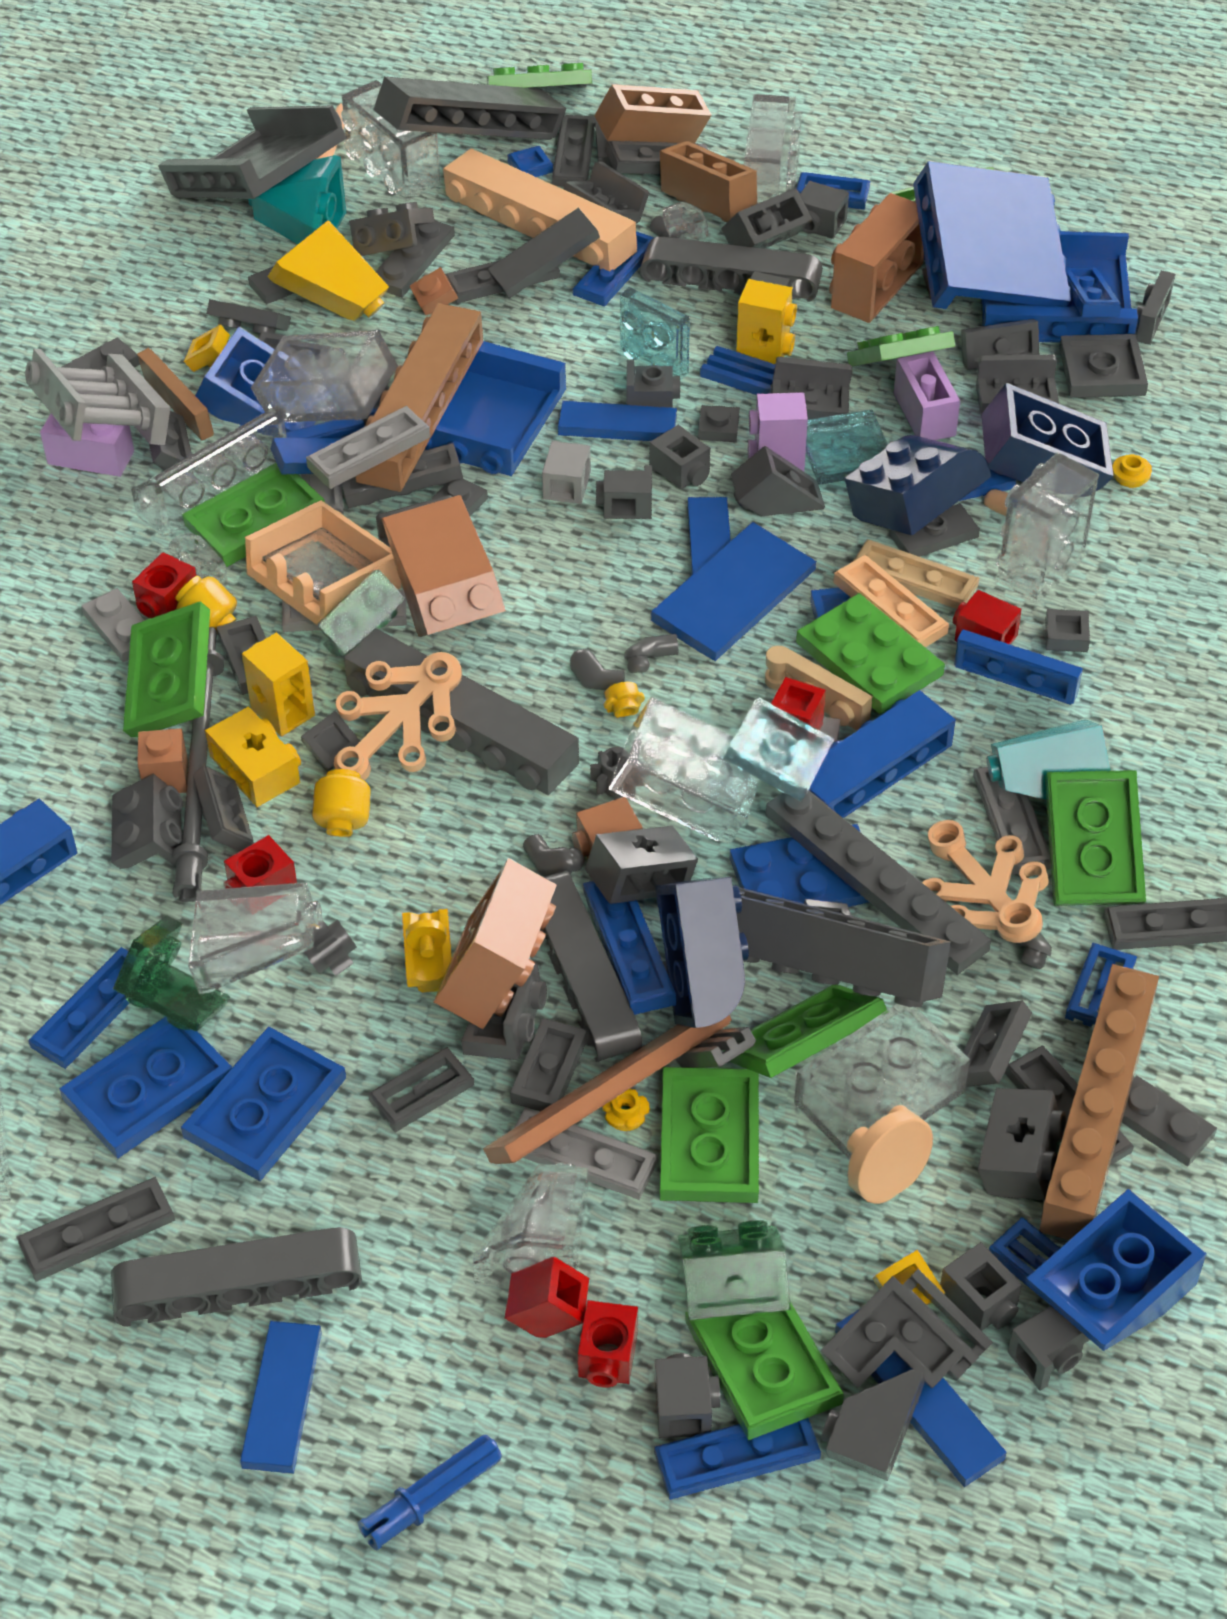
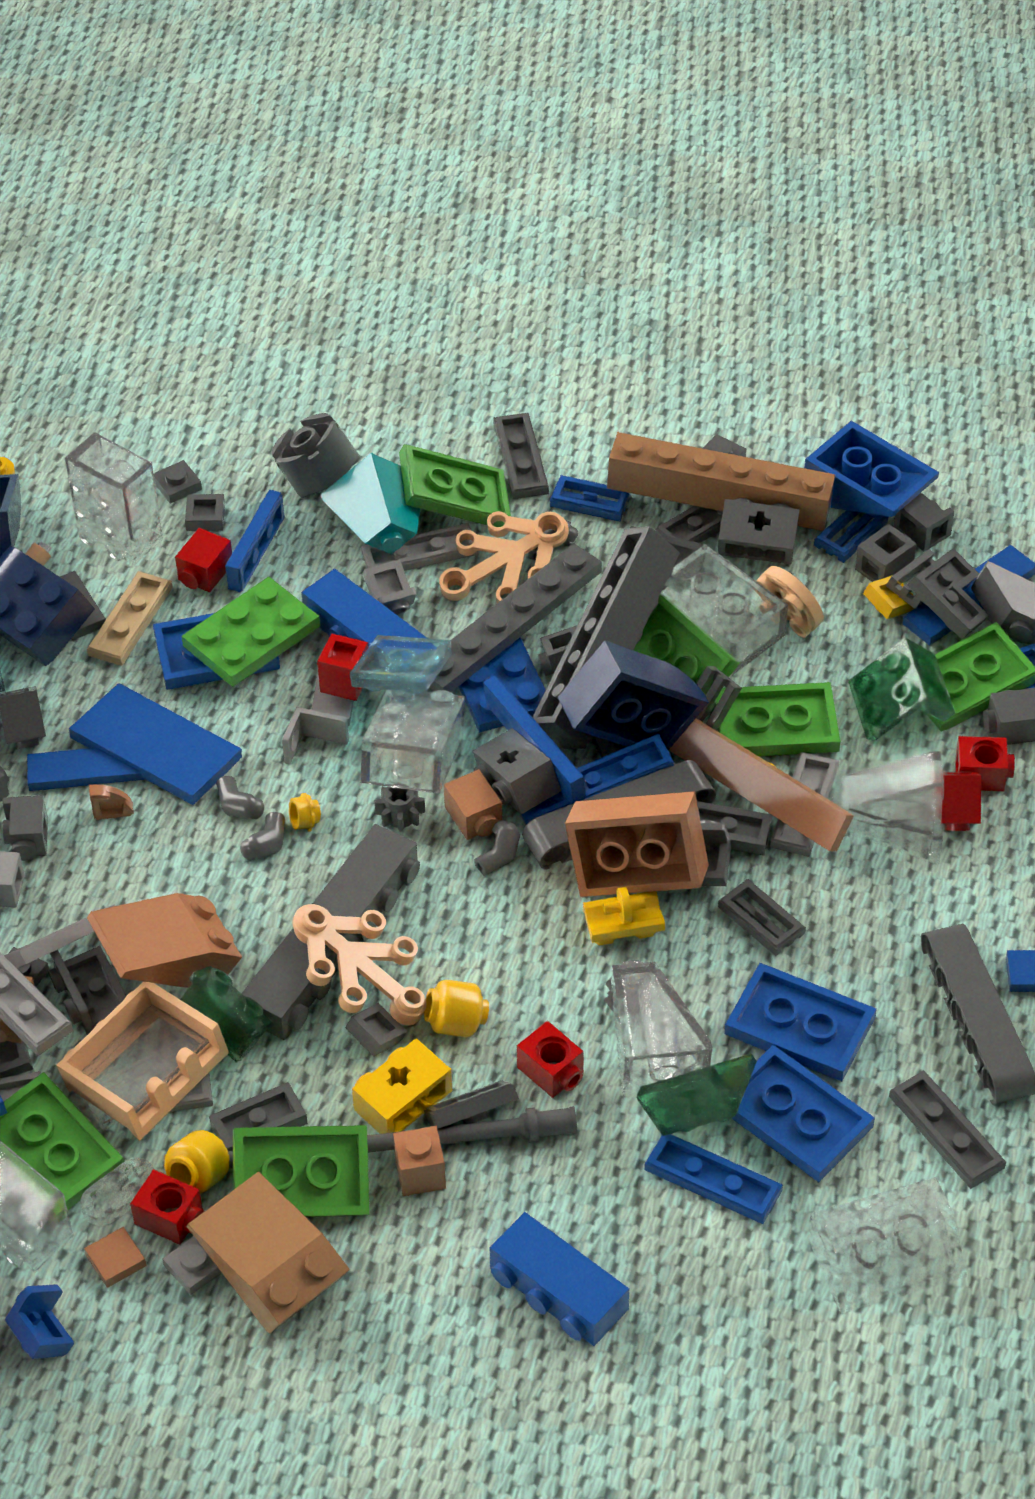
camera: 95 degrees left, 0 degrees up
(69, 507) = (36, 1324): none -> blue bracket
(82, 643) = (267, 1251): none -> medium nougat slope
(130, 560) = (115, 1257): none -> nougat tile
(145, 822) = (493, 1172): dark grey bracket -> none
(278, 683) = (322, 1065): yellow brick -> none
(482, 517) = (50, 943): none -> light grey tile
(653, 552) = (109, 802): none -> nougat tile
(707, 858) = (515, 716): none -> blue tile
(738, 703) = (316, 725): none -> light grey bracket
(841, 699) = (286, 671): tan plate -> none
(892, 599) = (164, 632): light nougat tile -> none
(940, 780) = (390, 586): none -> light grey bracket
(1121, 612) = (177, 481): none -> dark grey plate
(1138, 708) = (314, 454): none -> dark grey brick

